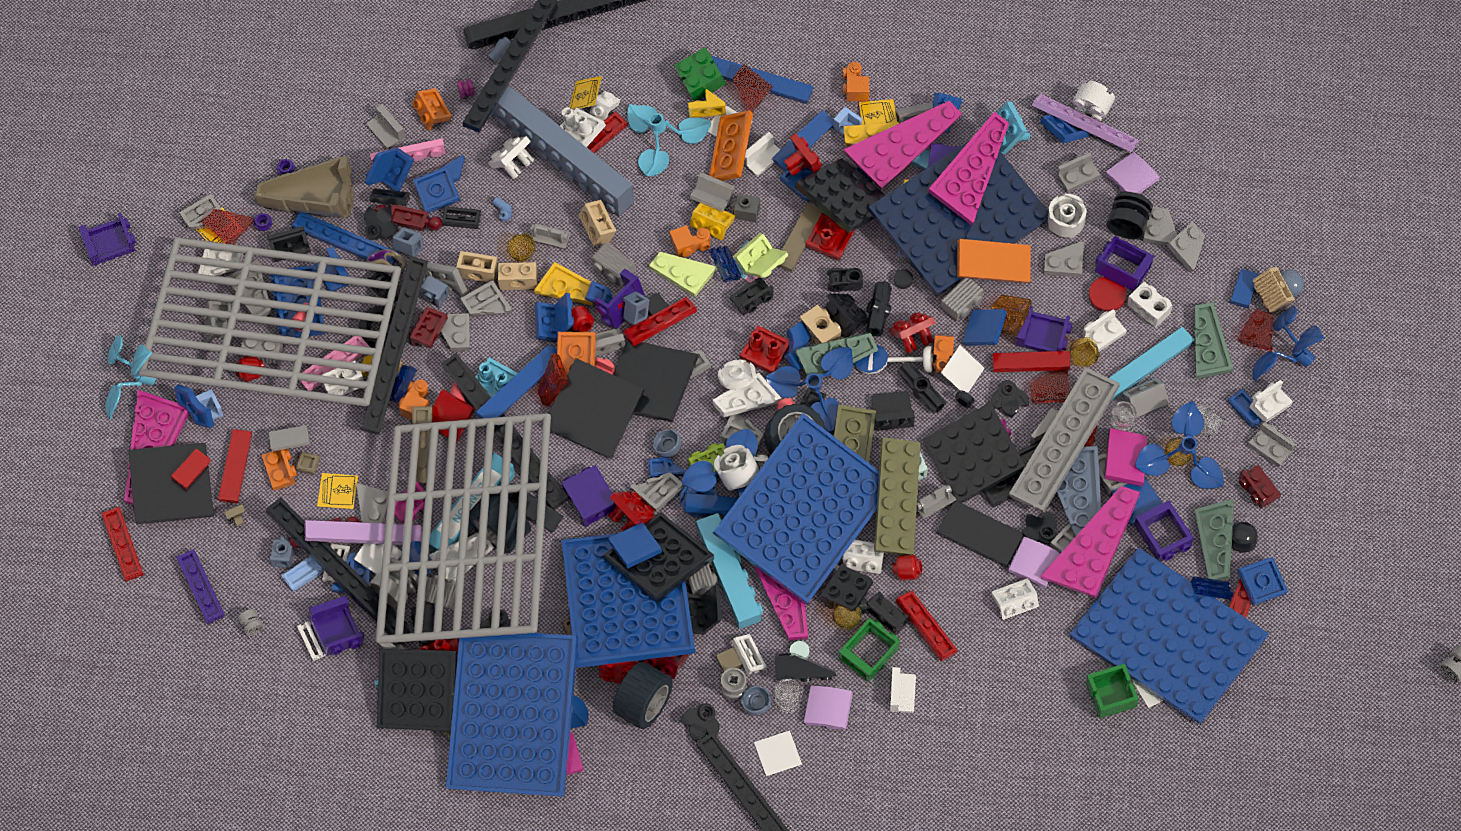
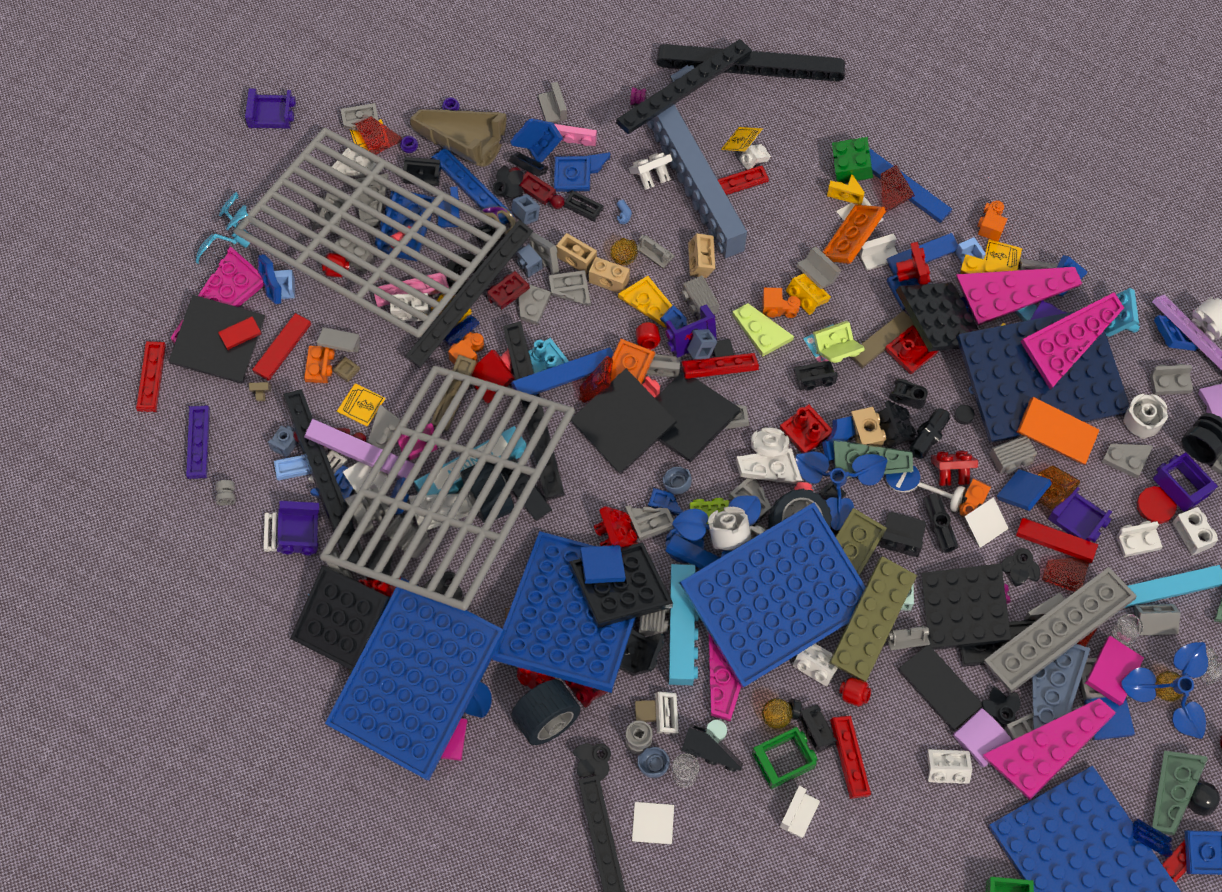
camera: 20 degrees right, 0 degrees up
(431, 108) = (600, 101): orange bracket -> none
(553, 318) = (623, 325): blue bracket -> none
(581, 125) = (725, 165): white plate -> none
(589, 495) = (583, 499): dark purple panel -> none
(642, 117) = (786, 179): medium azure plant -> none
(728, 264) = (806, 337): clear blue tile -> none
(746, 207) = (844, 294): dark grey brick -> none
(828, 707) = (720, 798): lavender slope -> none
(846, 588) = (786, 688): black bracket -> none
(964, 399) = (977, 550): black tile -> none
(1084, 352) = (1112, 551): clear yellow hair -> none
(1154, 515) = (1119, 740): dark purple window -> none

